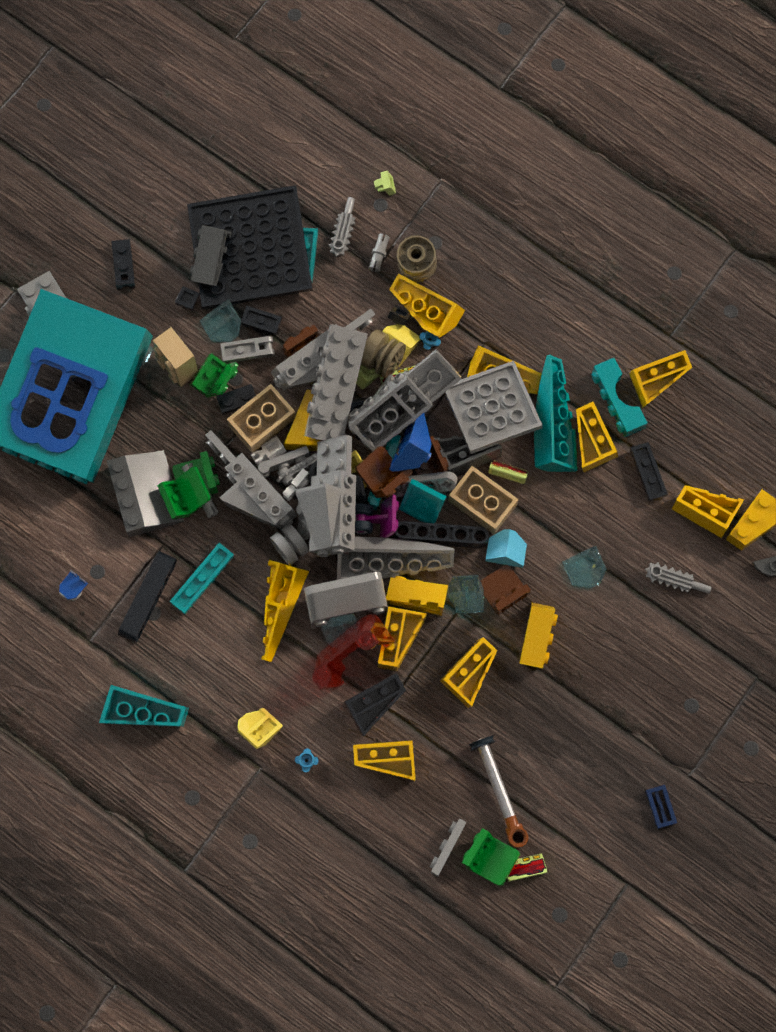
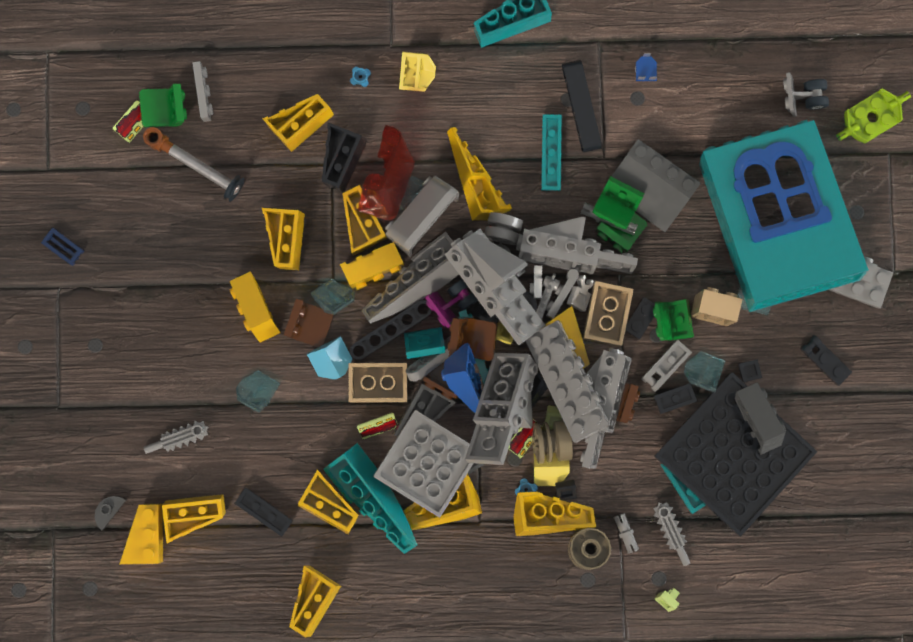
camera: 145 degrees right, 10 degrees up
(628, 418) = (312, 544): teal arch -> none

